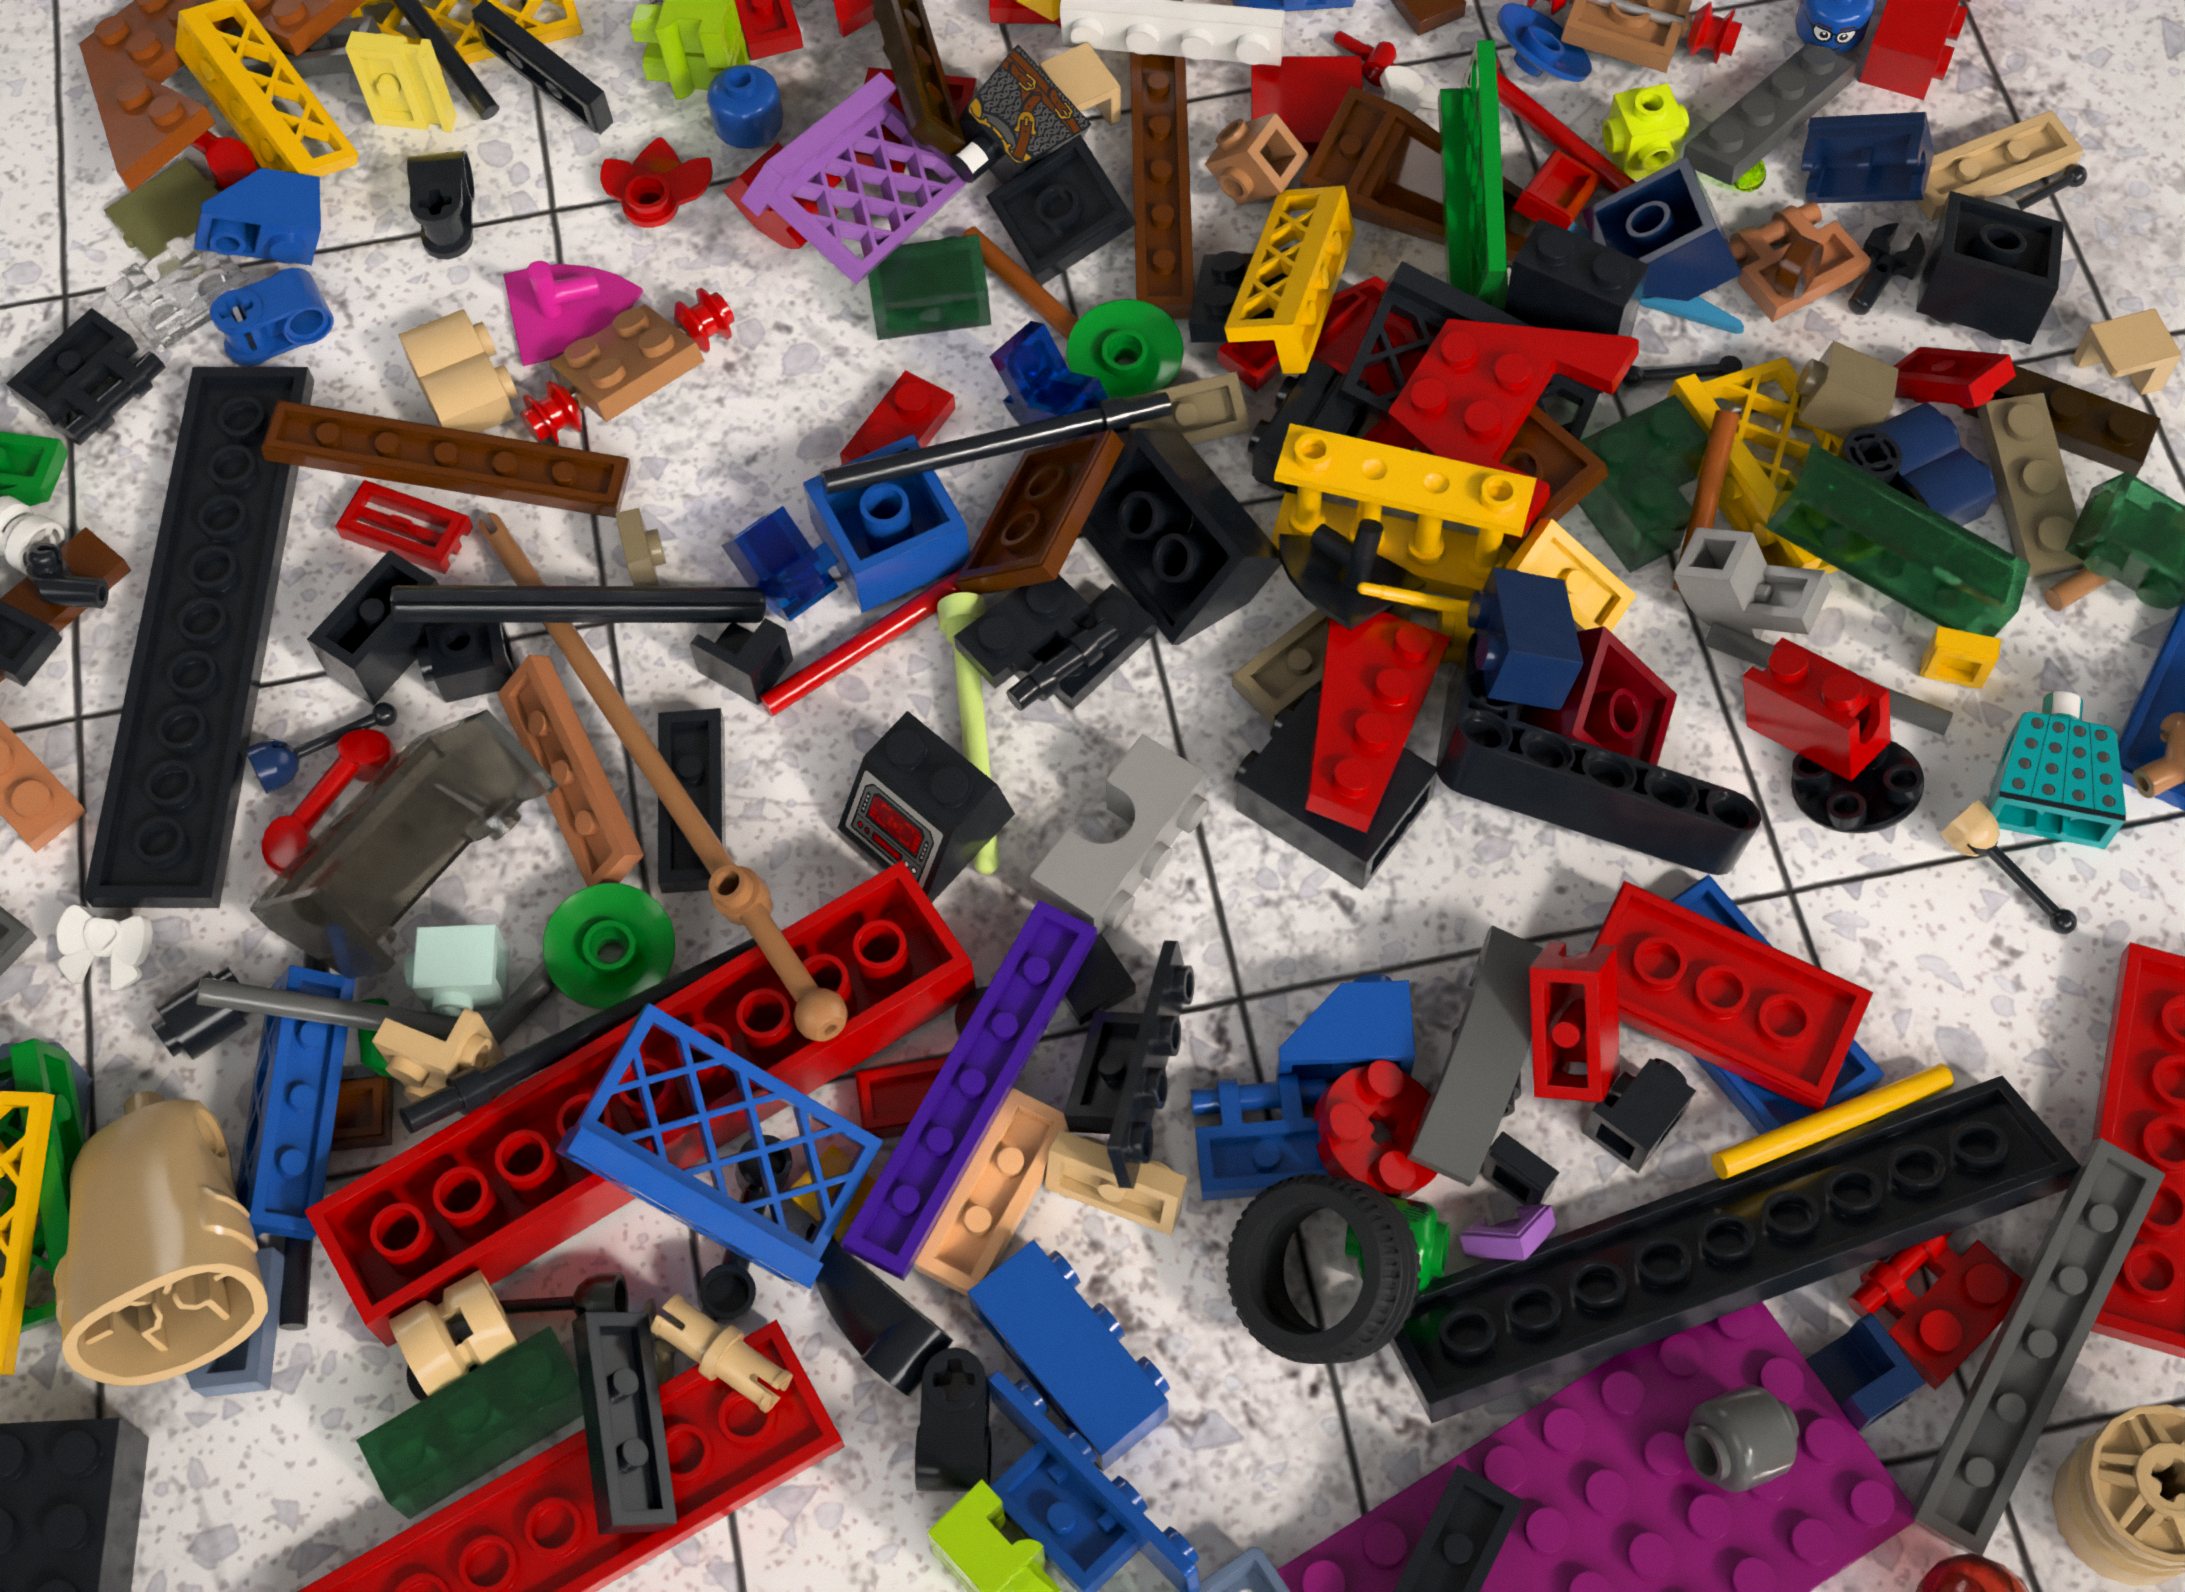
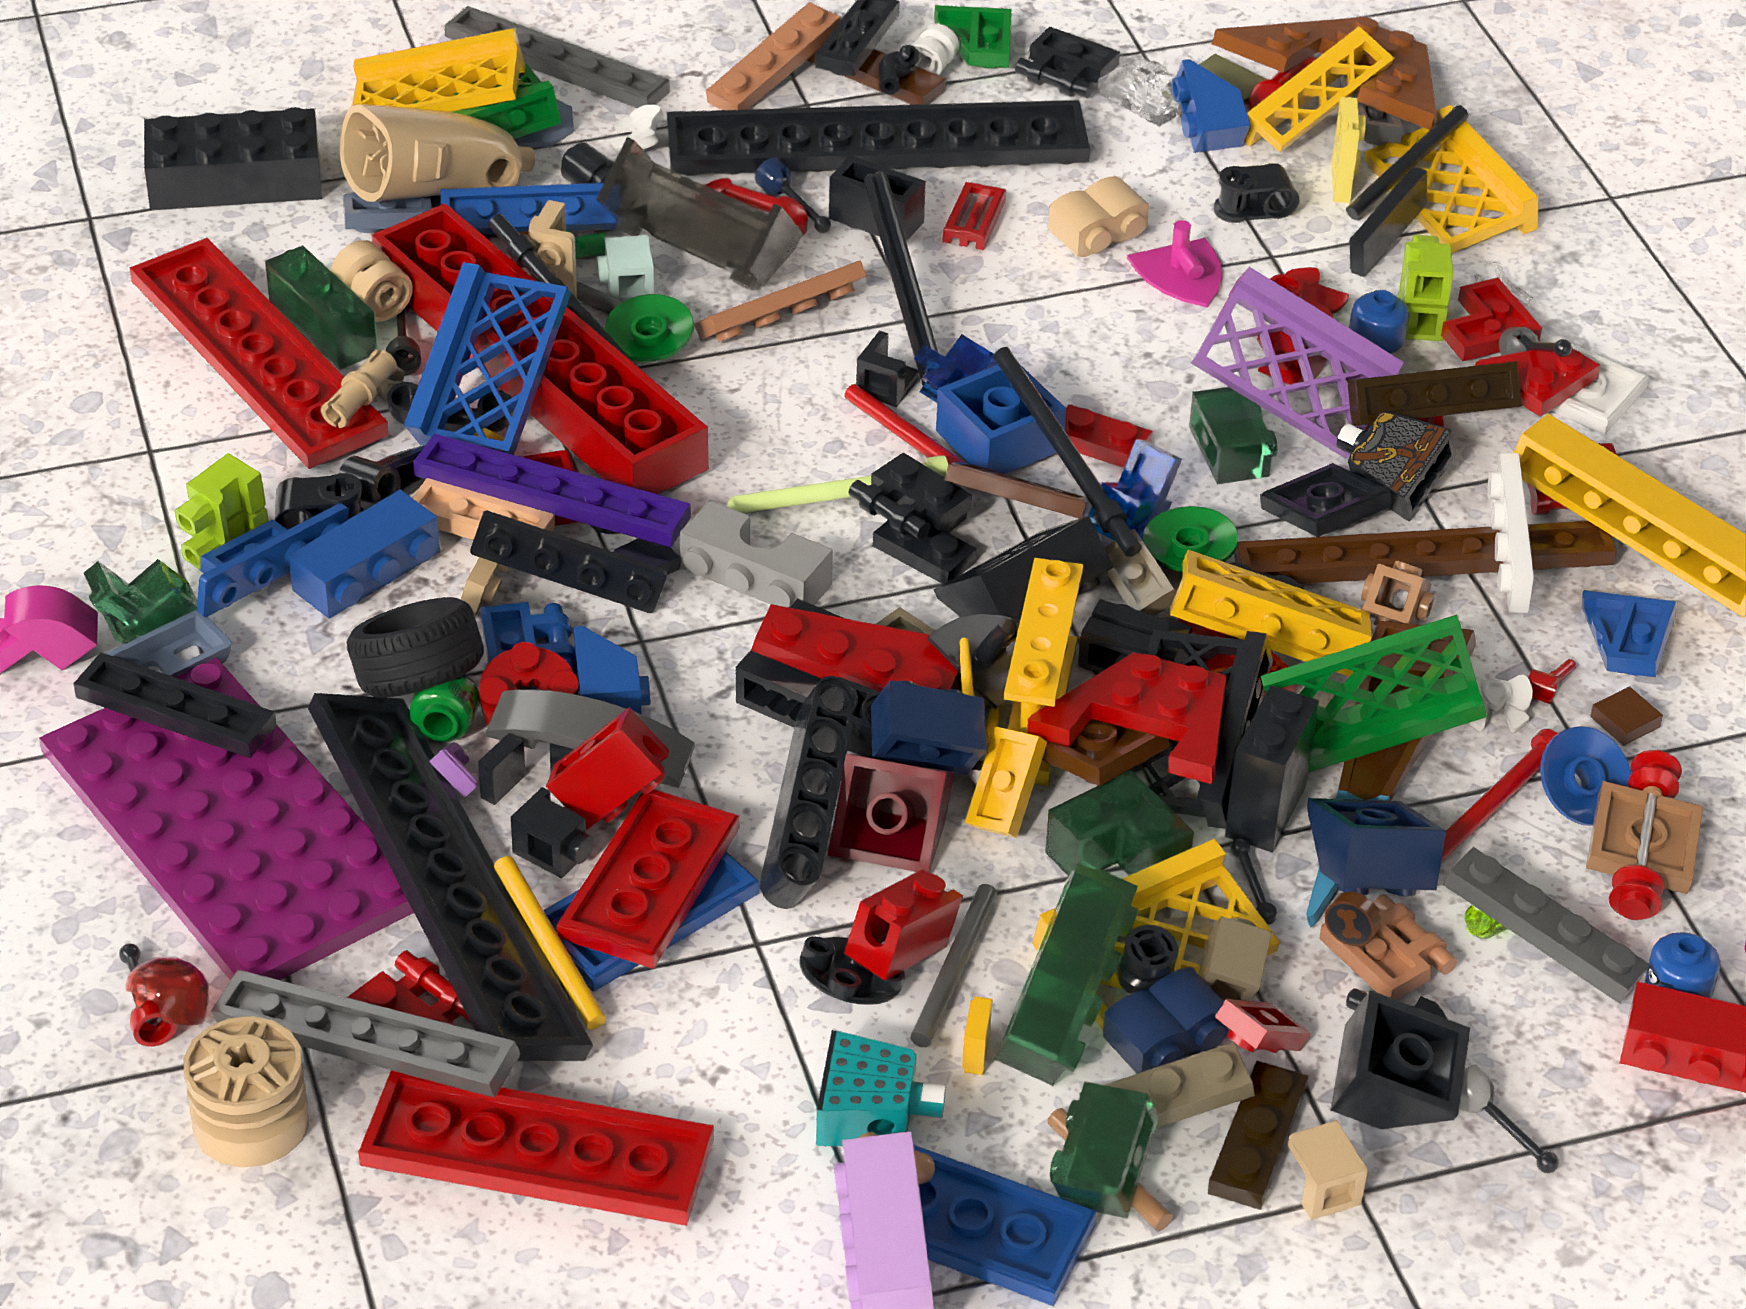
camera: 80 degrees right, 20 degrees down
(277, 313) = (1133, 129): blue piece -> none
(318, 1008) = (585, 207): dark grey bar -> none
(446, 458) = (1026, 222): reddish brown tile -> none
(466, 658) = (859, 240): black brick -> none
(623, 1423) = (311, 349): black plate -> none
(625, 363) = (1127, 291): medium nougat plate -> none
(641, 548) = (964, 312): dark tan plate -> none
(695, 752) = (767, 358): black plate -> none
(733, 889) = (674, 353): medium nougat bar -> none
(922, 806) = (772, 457): black slope -> none
(1024, 285) = (1271, 479): dark orange bar -> none
(1085, 81) = (1456, 496): tan panel -> none
(1304, 92) = (1502, 639): red tile -> none
(1558, 191) = (1412, 780): red tile -> none
(1645, 130) = (1503, 832): neon yellow brick -> none
(1712, 474) = (1111, 863): dark orange bar -> none
(1733, 586) = (1022, 887): light grey brick -> none
(1742, 1438) = (290, 856): dark grey head -> none
(1866, 1372) = (346, 963): dark blue panel -> none
(1867, 157) = (1502, 992): dark blue hinge -> none
(1977, 834) = (810, 1045): hinge -> none
(2000, 161) = (1536, 1091): tan plate -> none

